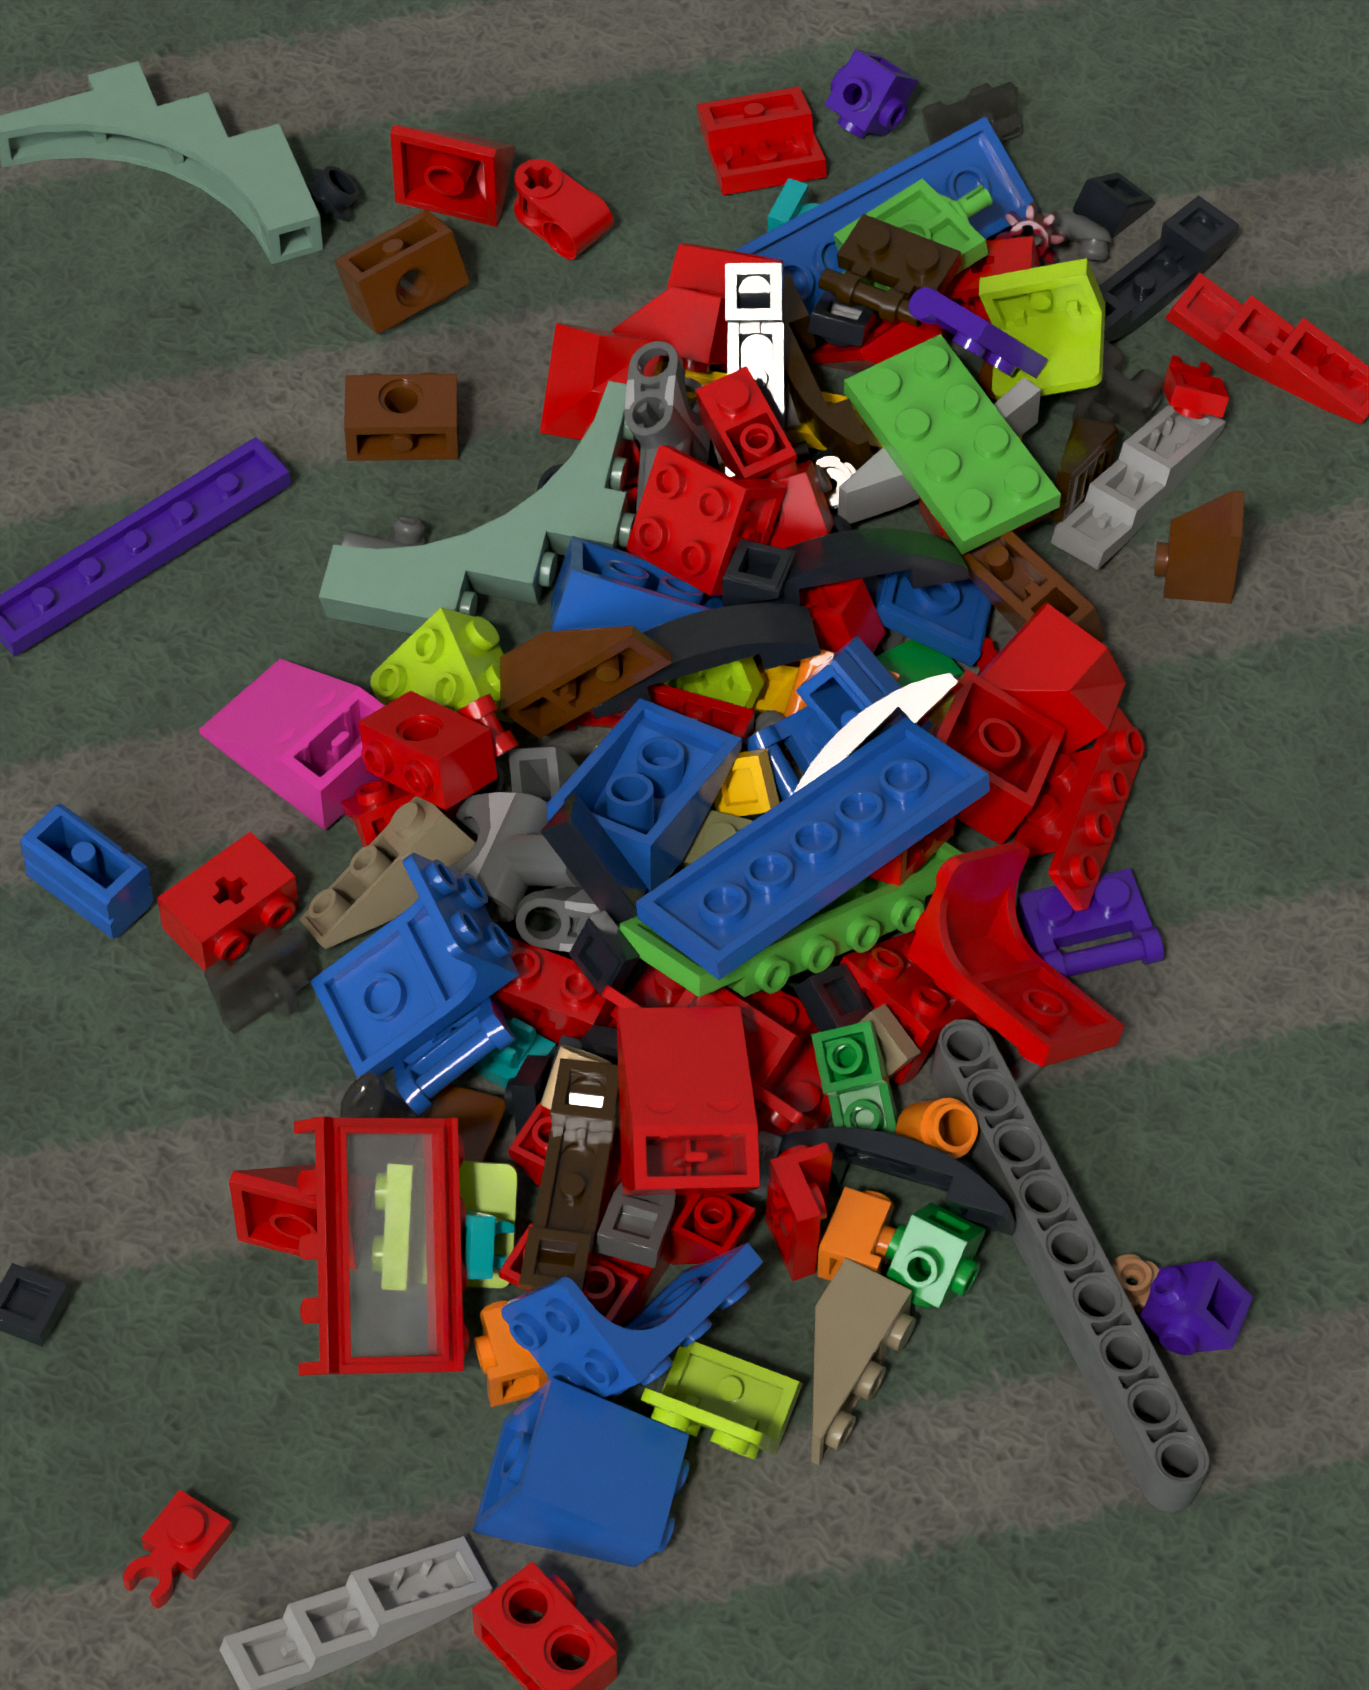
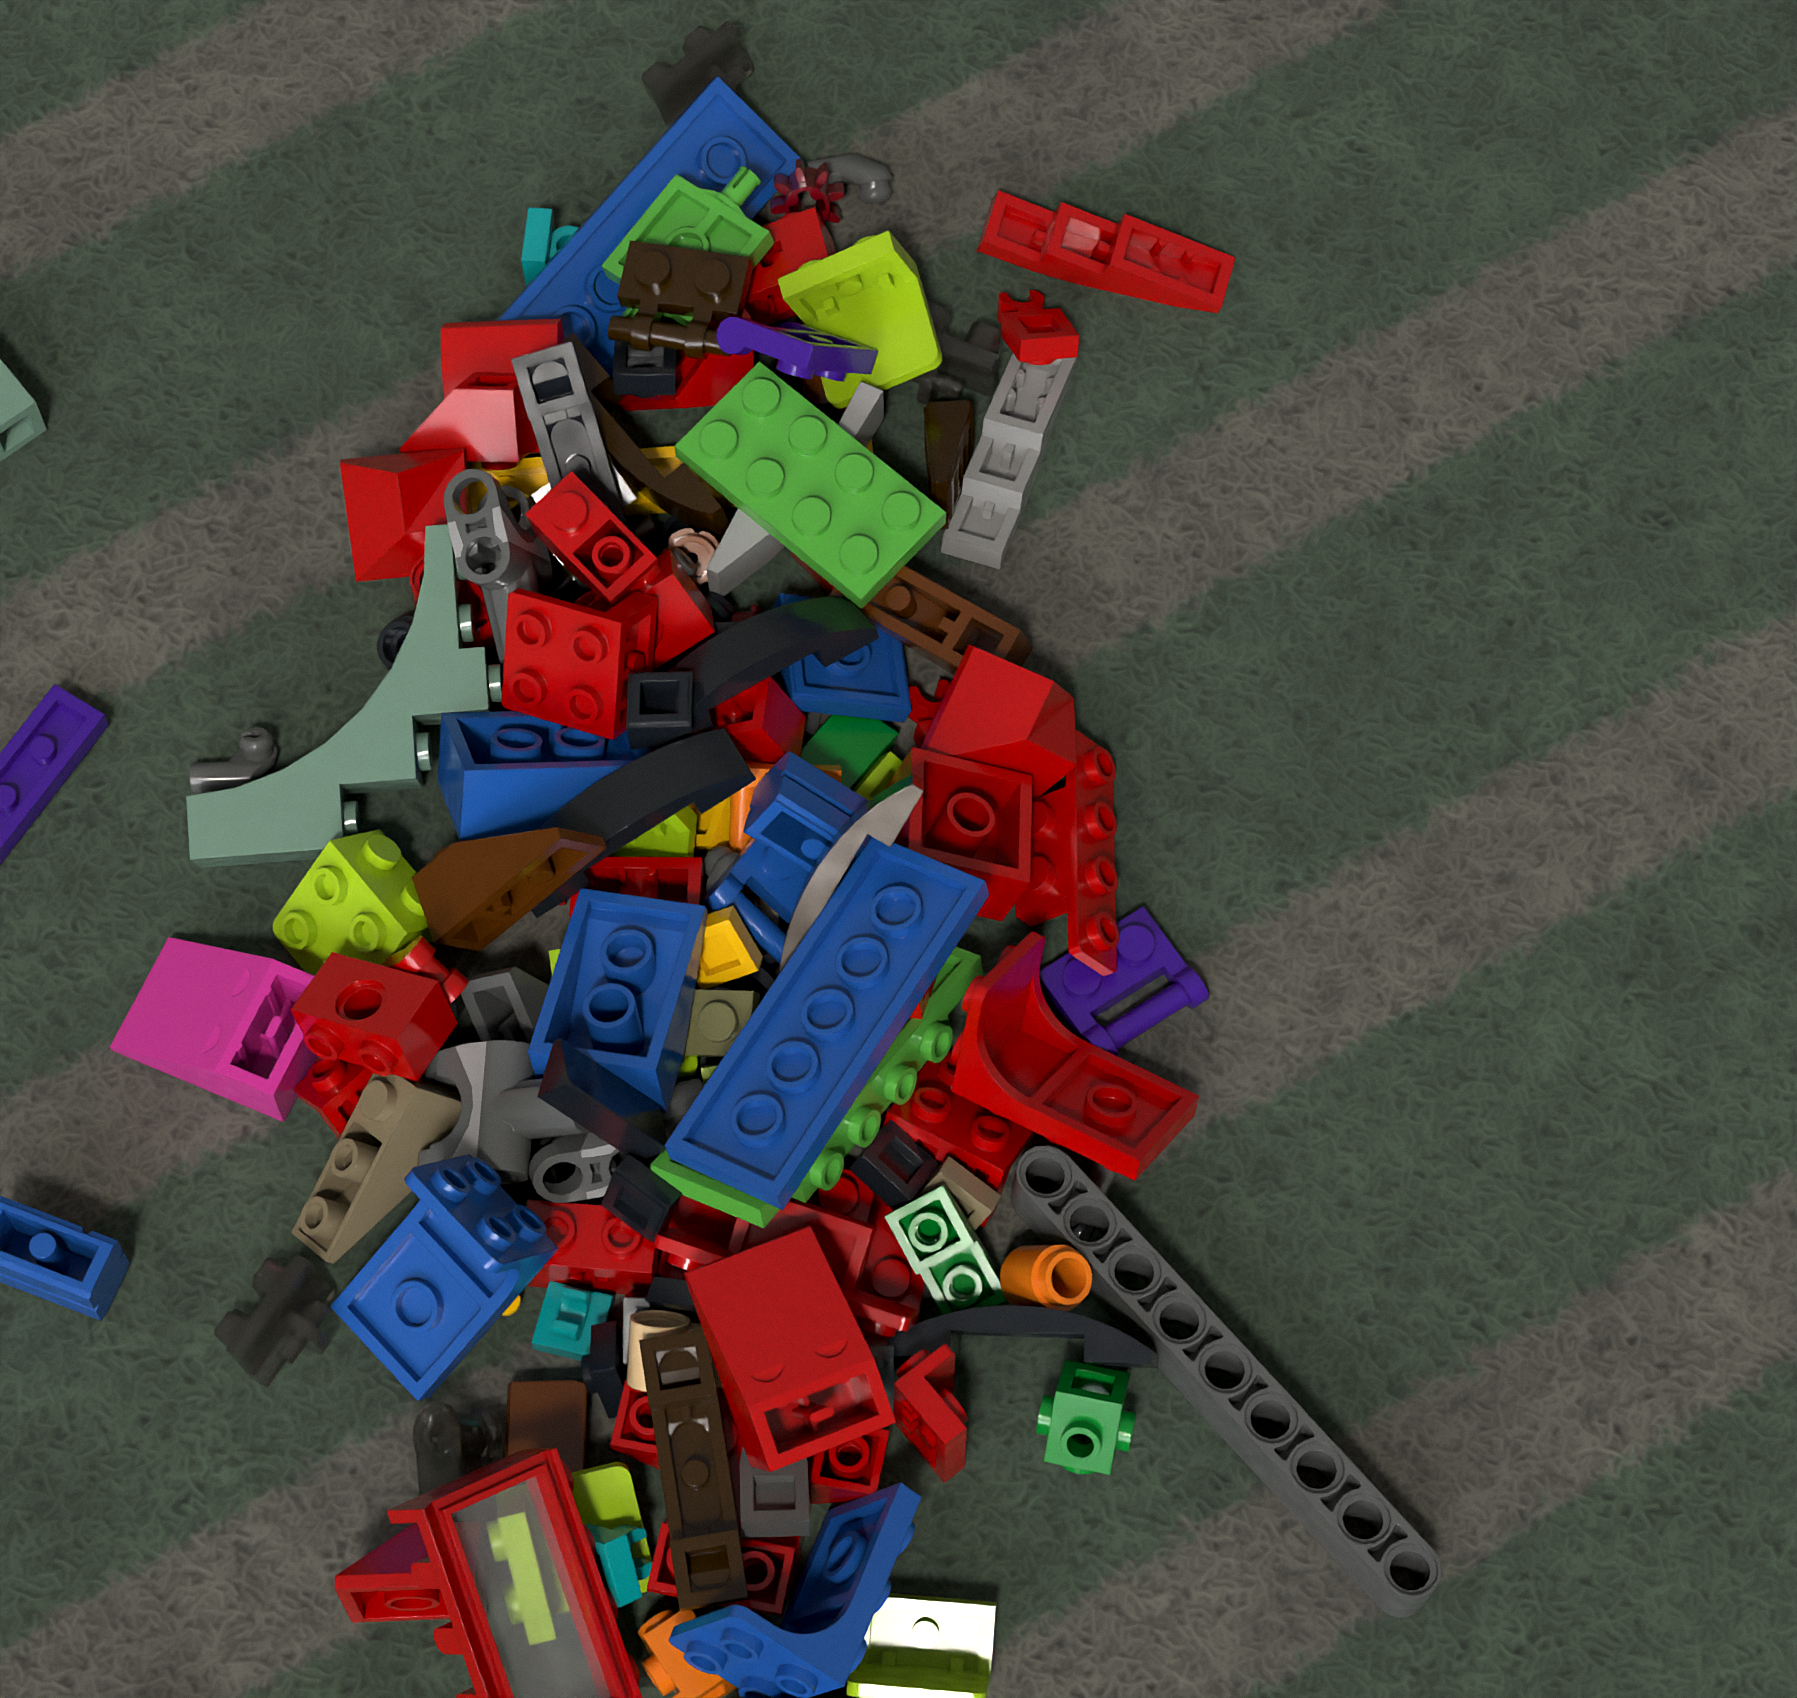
camera: 15 degrees left, 10 degrees up
(229, 902) = (214, 1209): red brick -> none
(333, 192) = (37, 361): black plate -> none
(401, 417) = (187, 638): reddish brown brick -> none
(402, 271) = (147, 440): reddish brown brick -> none
(451, 173) = (161, 304): red slope -> none
(451, 1054) = (513, 1354): blue plate -> none
(559, 208) = (290, 313): red piece -> none
(761, 140) = (479, 161): red slope -> none
(853, 1333) = (1027, 1535): dark tan slope -> none
(857, 1232) = (1001, 1420): orange brick -> none
(870, 94) = (581, 77): dark purple brick -> none
(1112, 202) = (876, 127): black slope -> none
(1132, 1266) = (1306, 1364): medium nougat plate -> none
(1166, 268) = (957, 189): black slope -> none
(1196, 1307) = (1370, 1391): dark purple brick -> none
(1203, 551) = (1106, 520): reddish brown slope -> none

